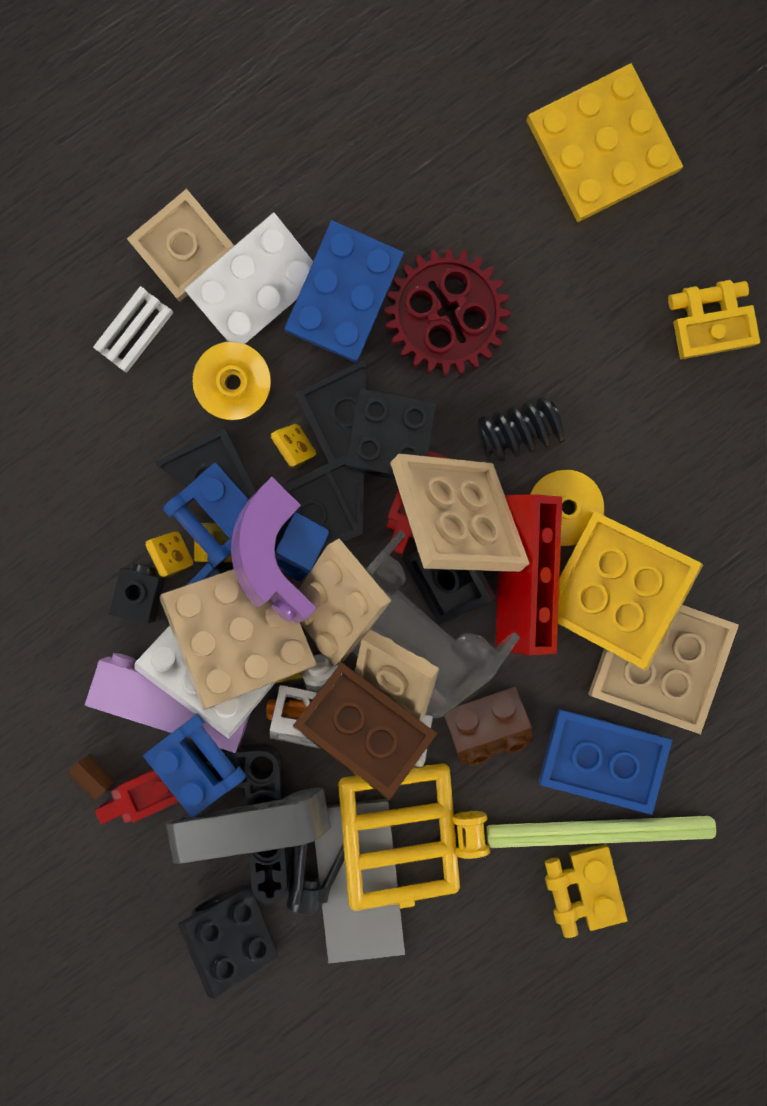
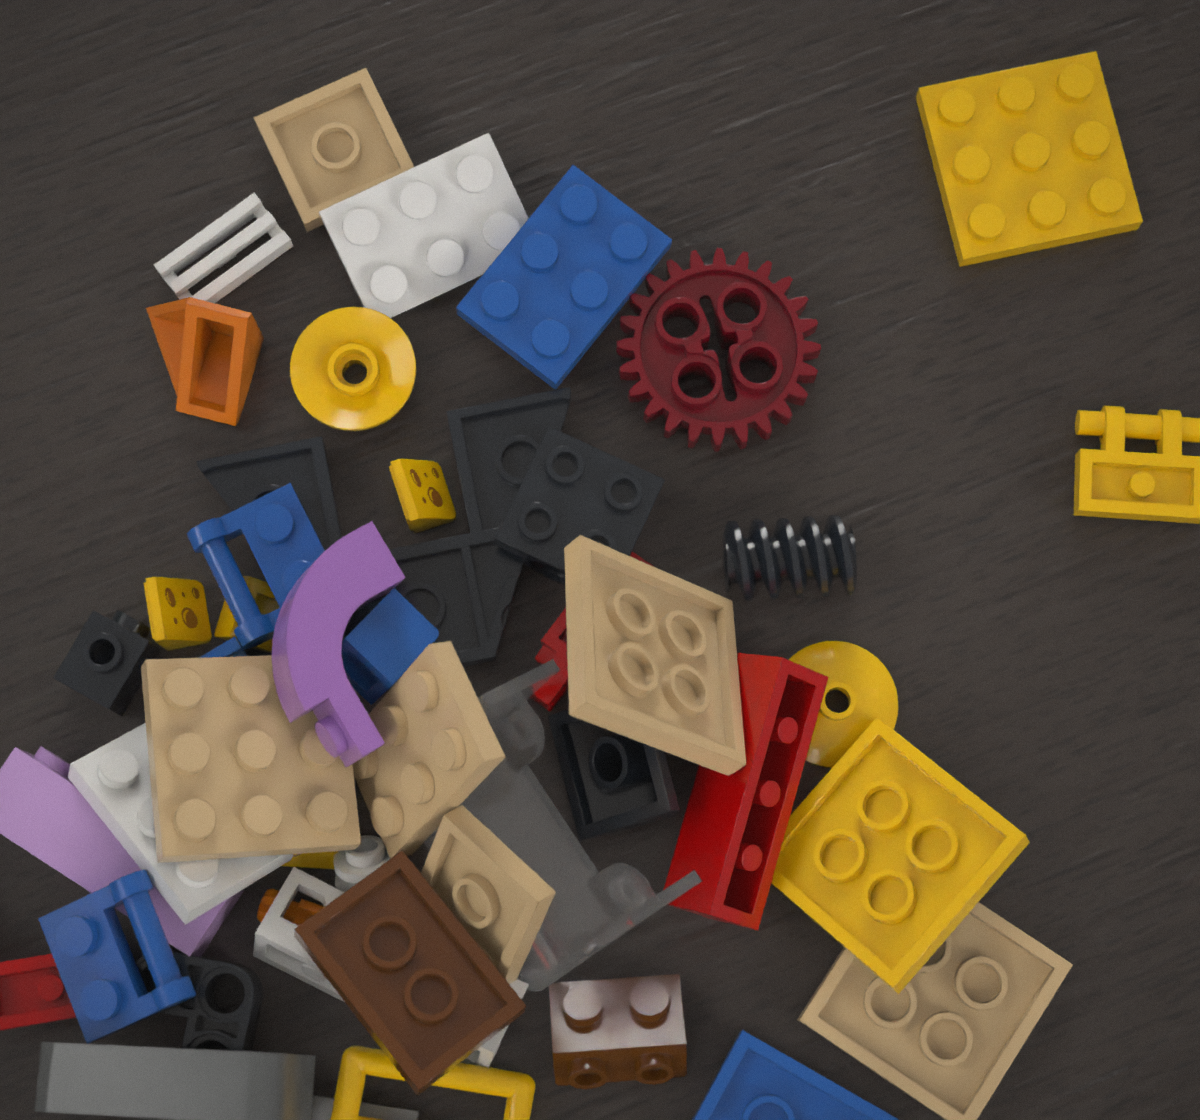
camera: 15 degrees right, 10 degrees down
(142, 395) = (207, 355): none -> orange slope

